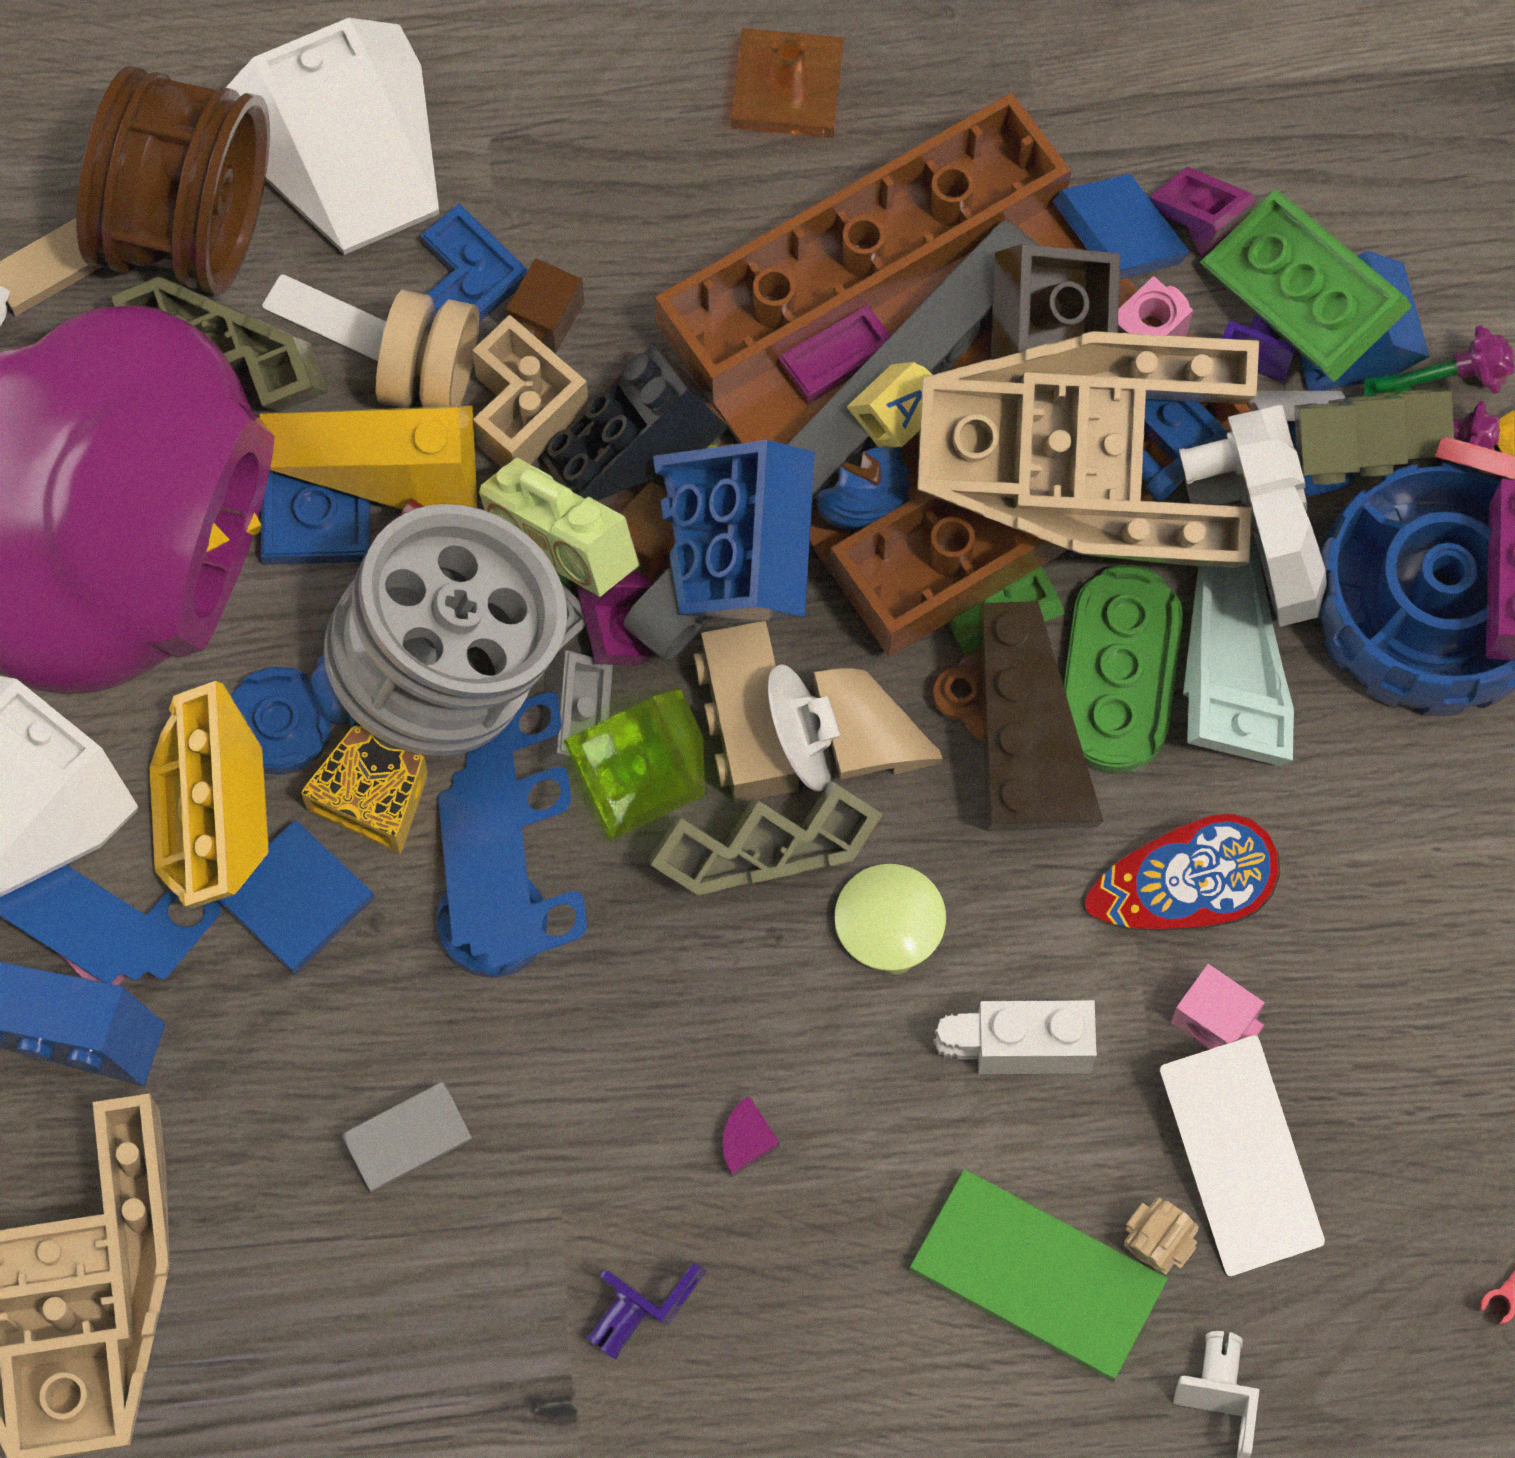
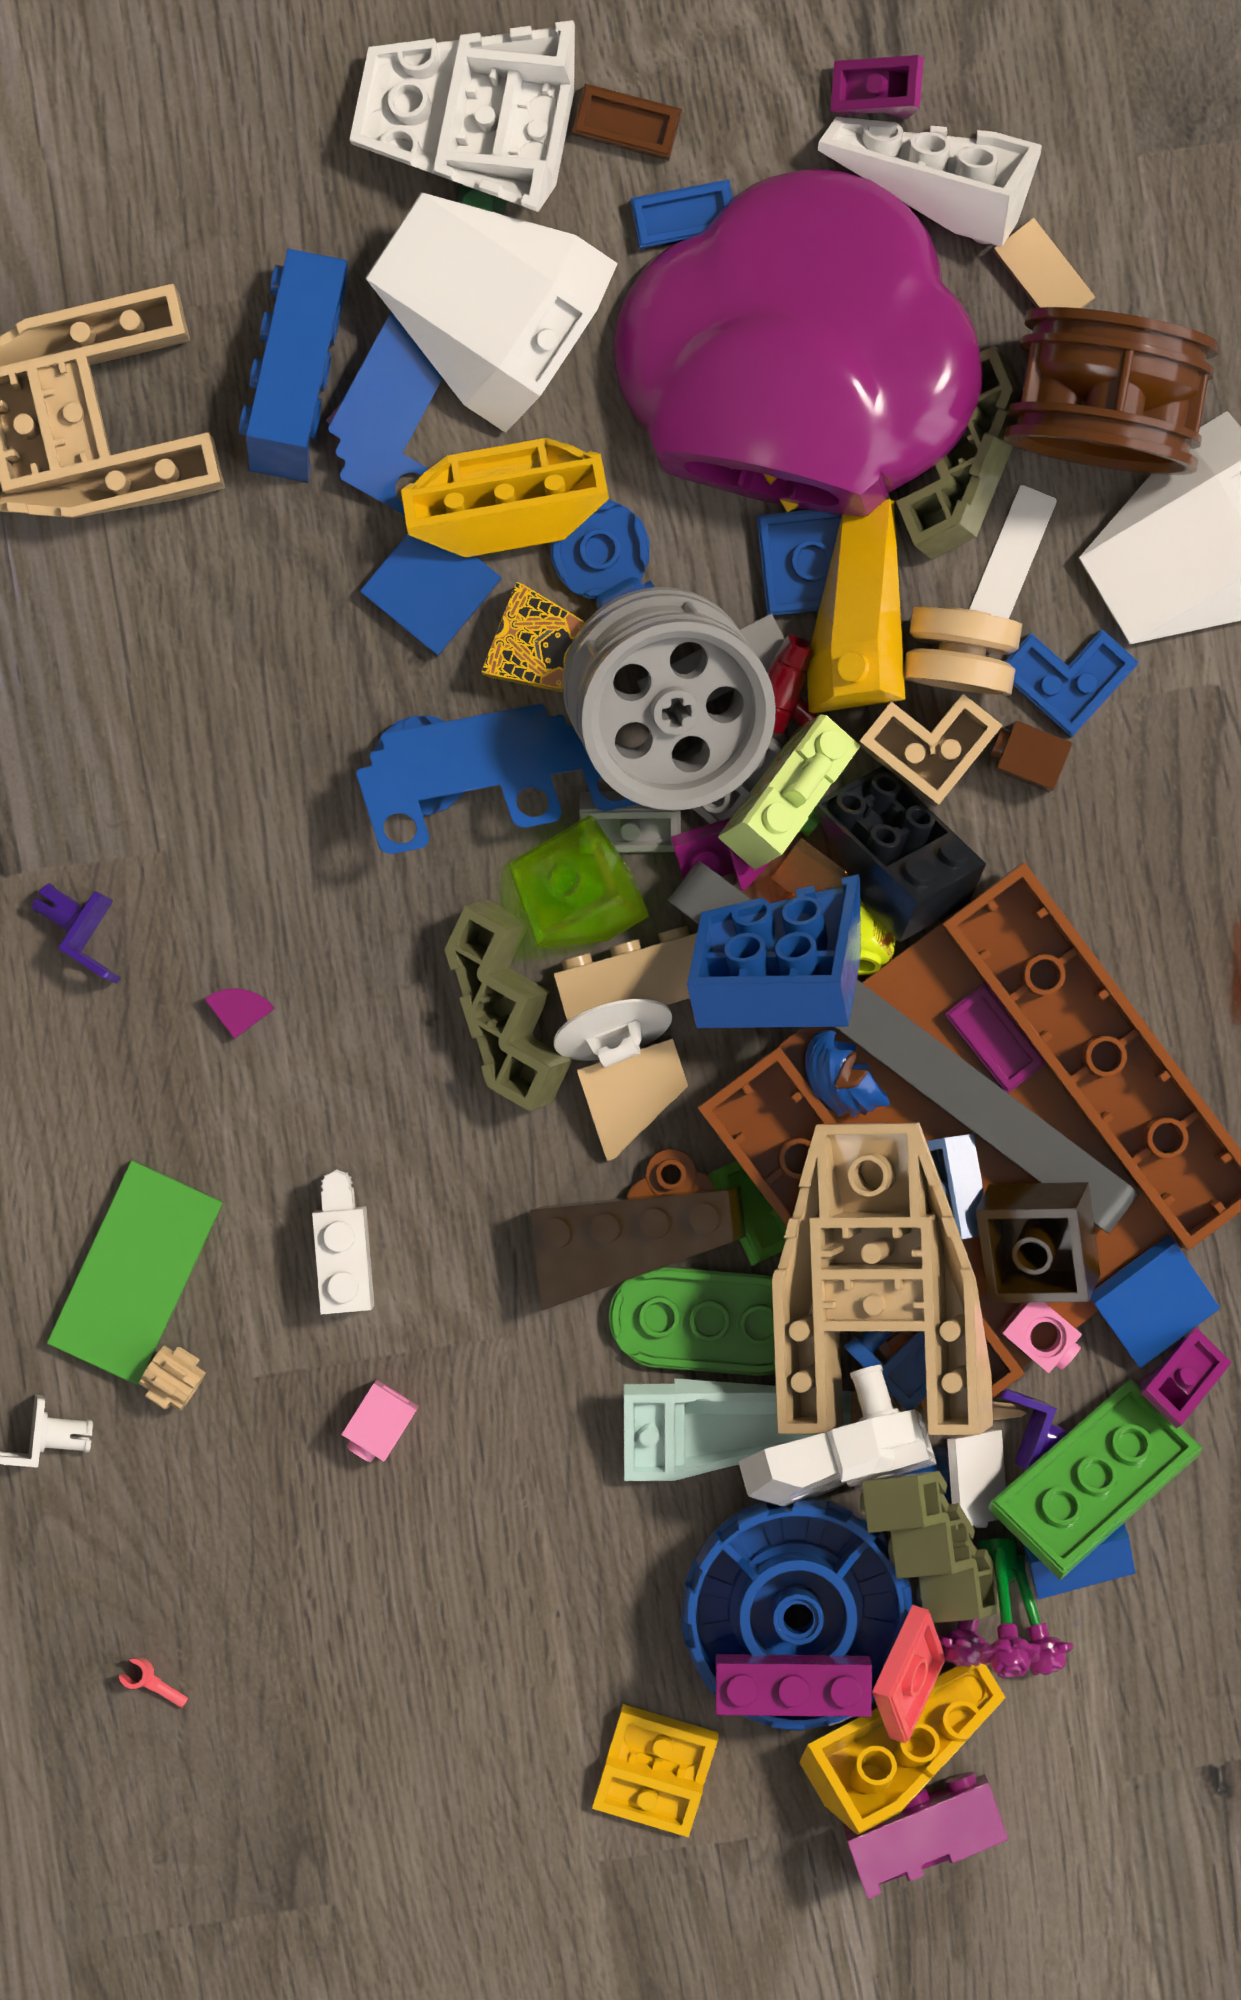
camera: 85 degrees right, 20 degrees up
(406, 1137) = (215, 710): light grey slope -> none
(890, 917) = (451, 1123): yellowish green dish -> none
(892, 405) = (922, 1096): light yellow brick -> none
(1190, 877) = (501, 1392): shield -> none
(1242, 1155) = (251, 1446): white sticker -> none

